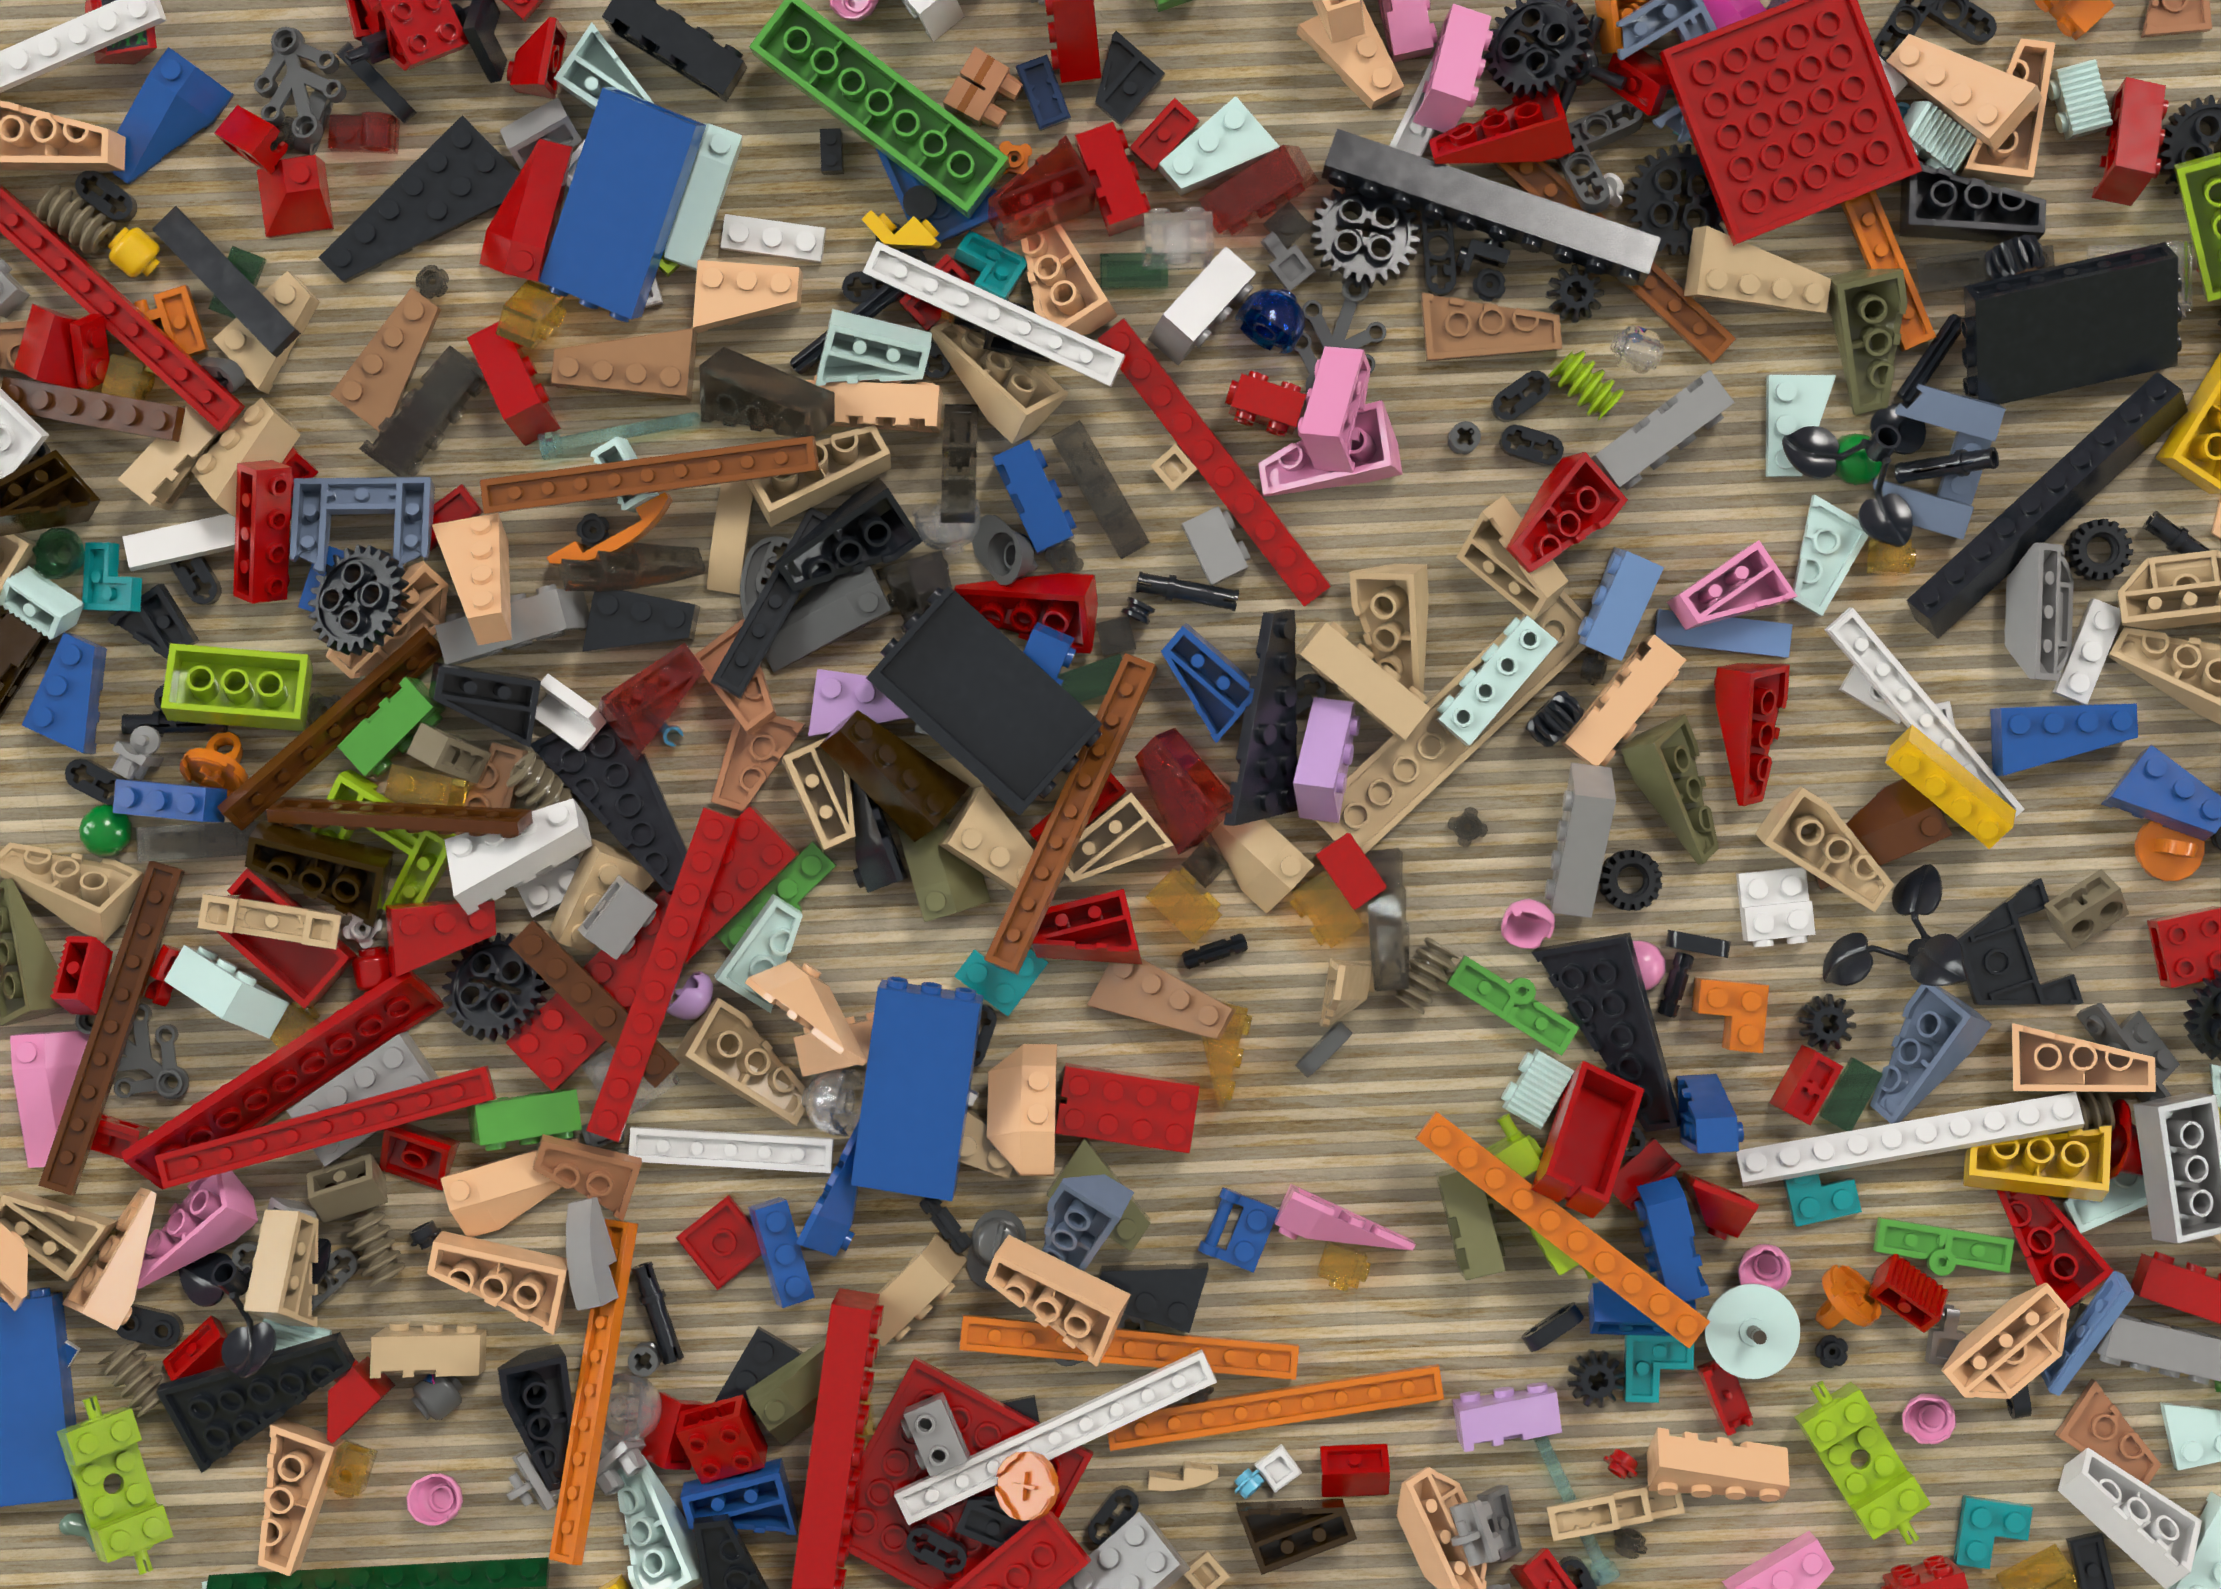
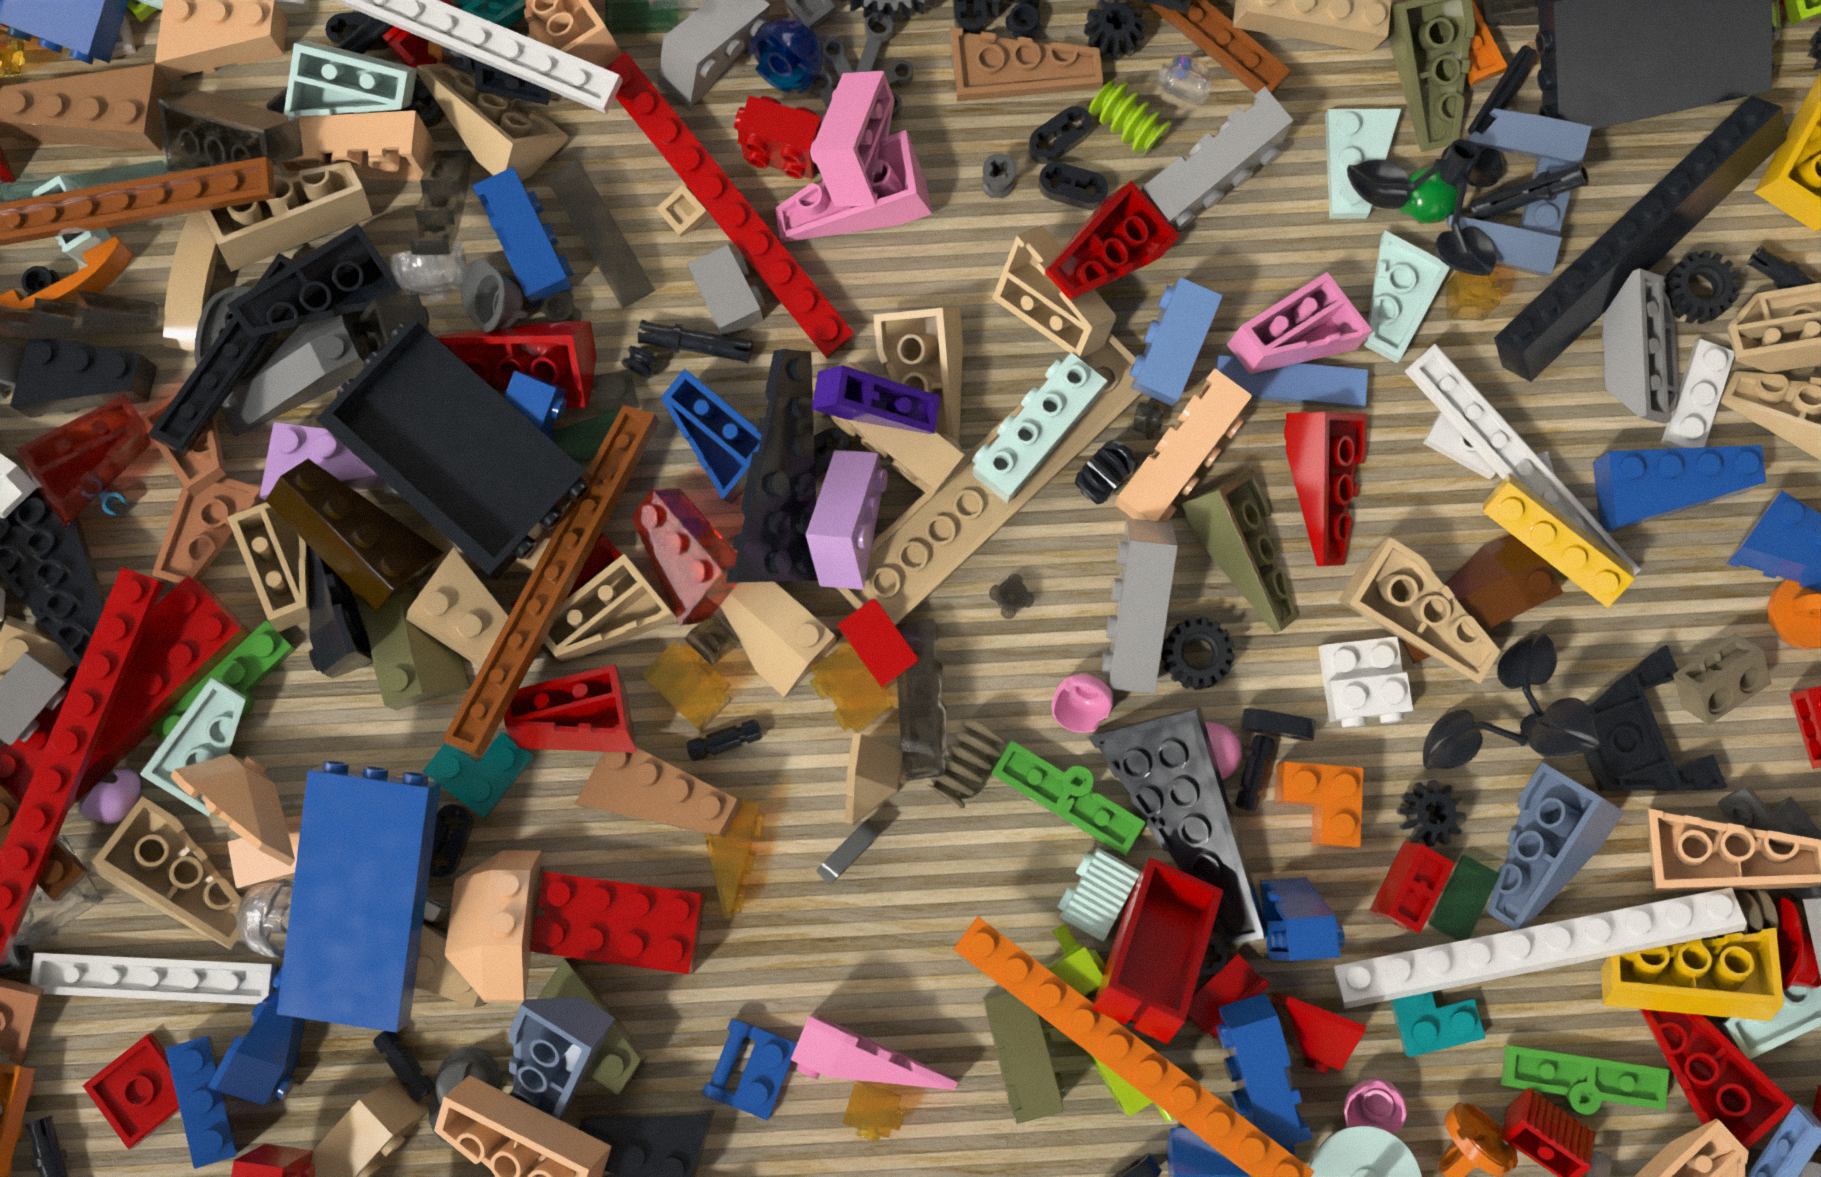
camera: 10 degrees left, 10 degrees down
(1355, 664) = (874, 400): none -> dark purple slope

